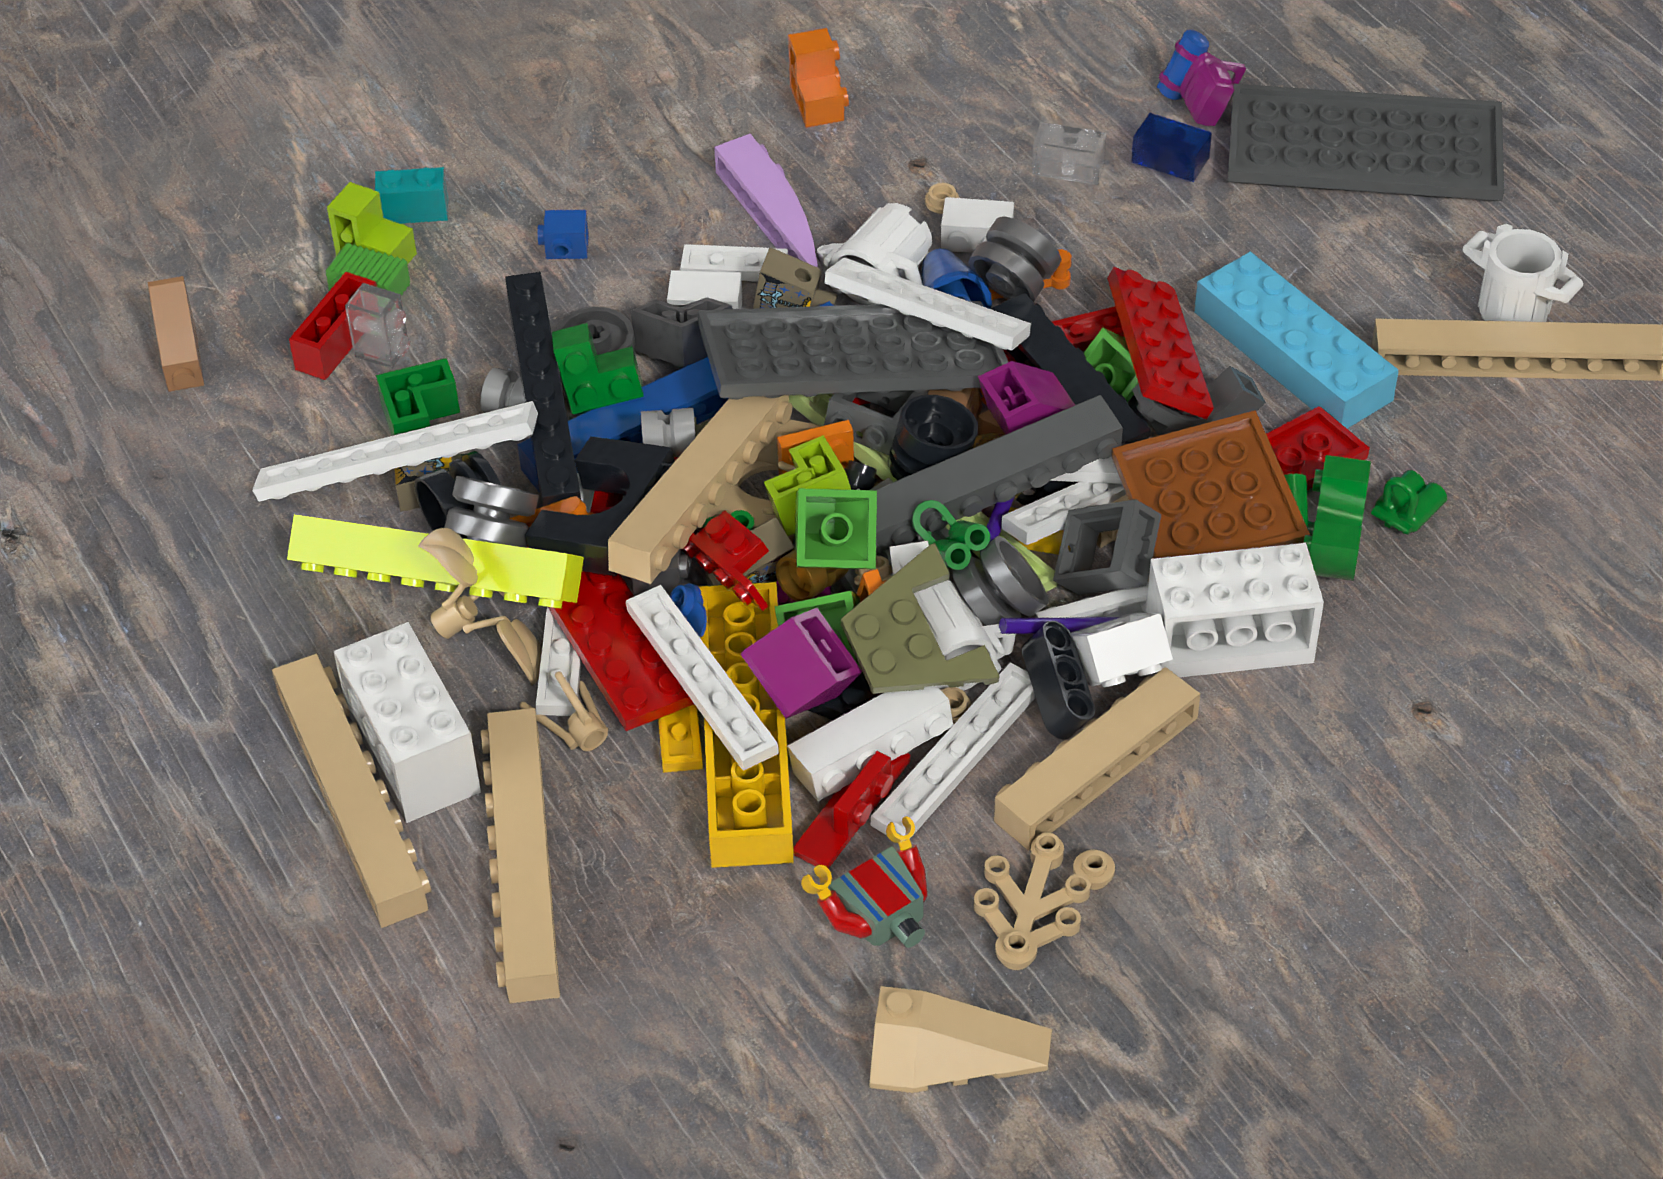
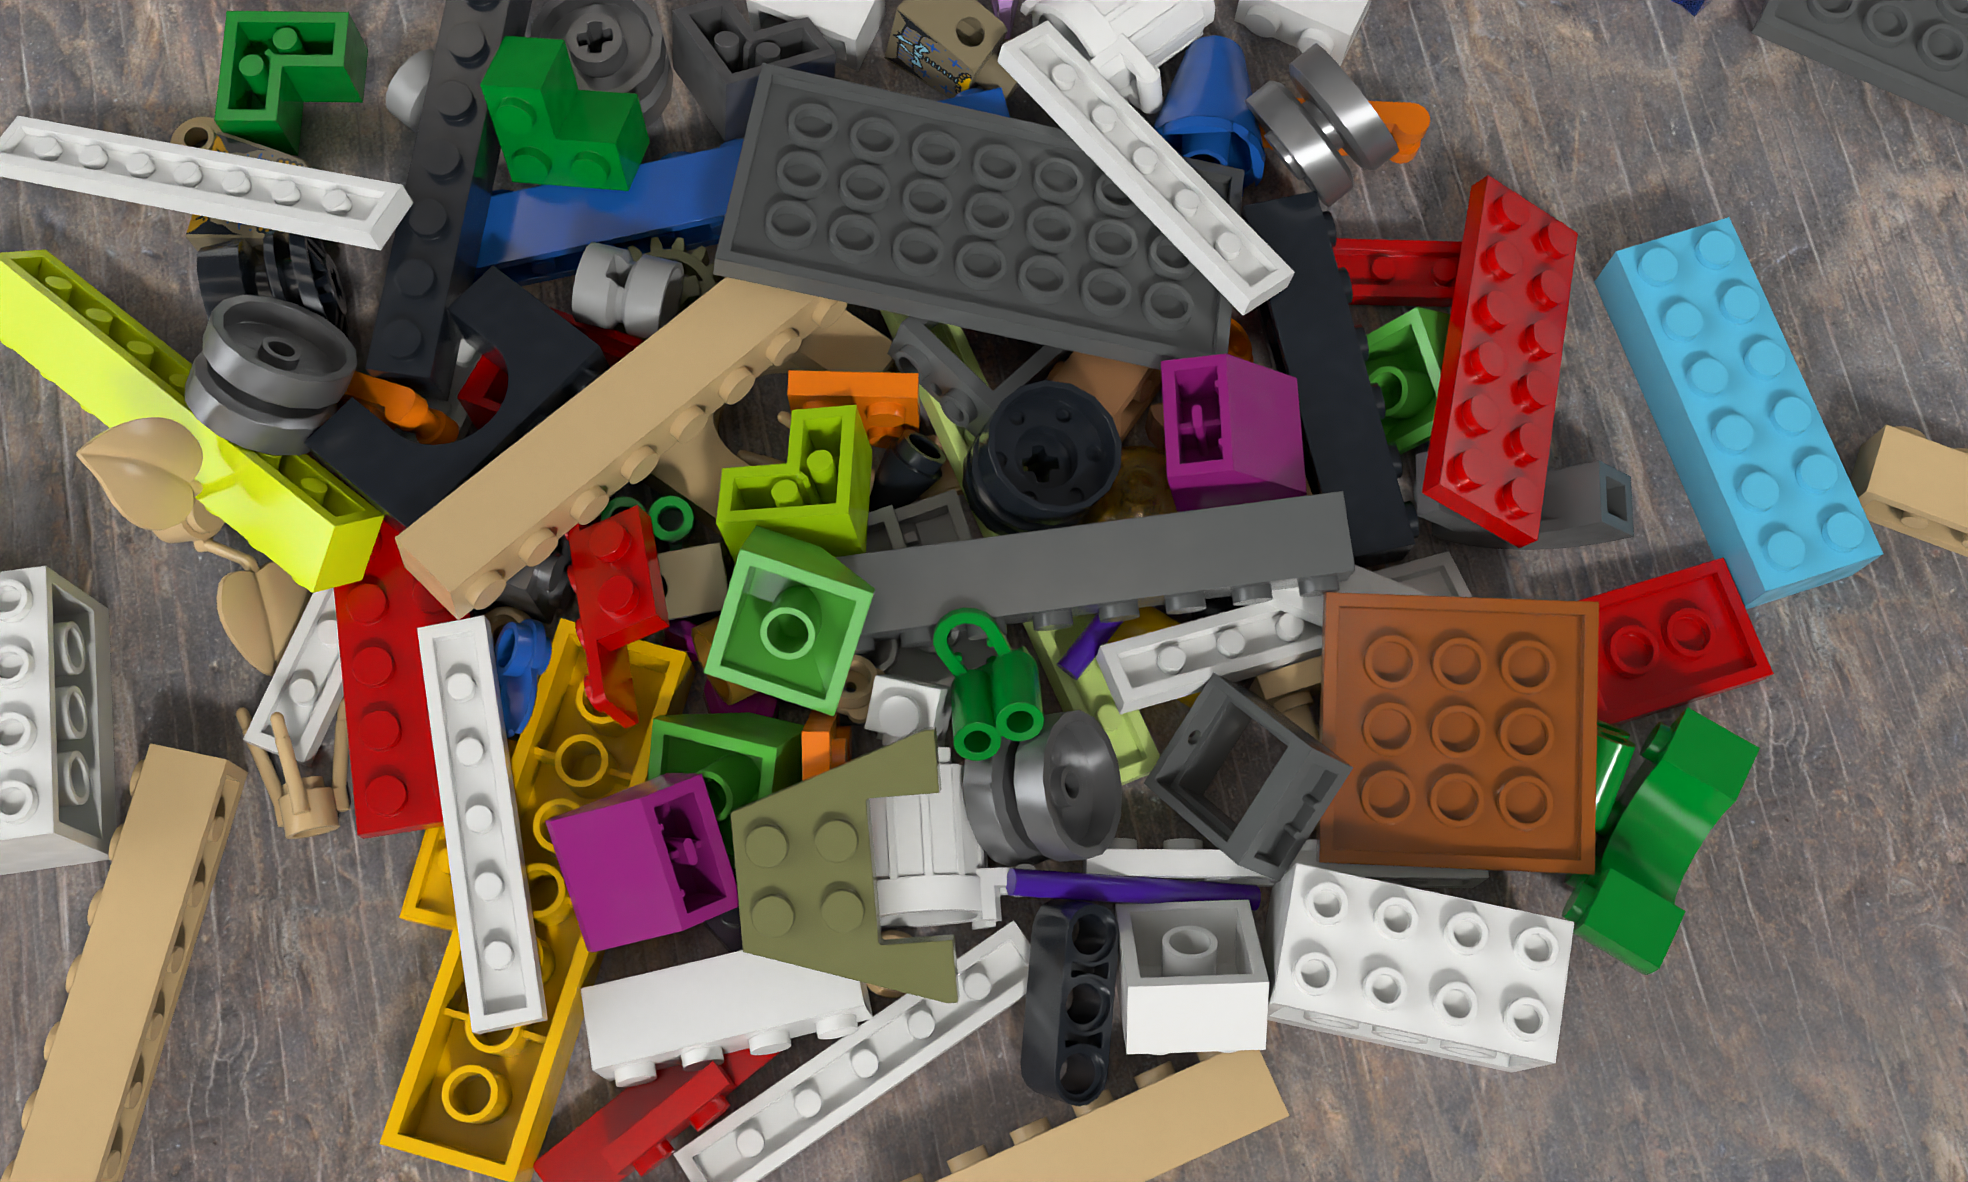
camera: 15 degrees right, 25 degrees up
(1408, 502) = (1793, 812): green piece -> none

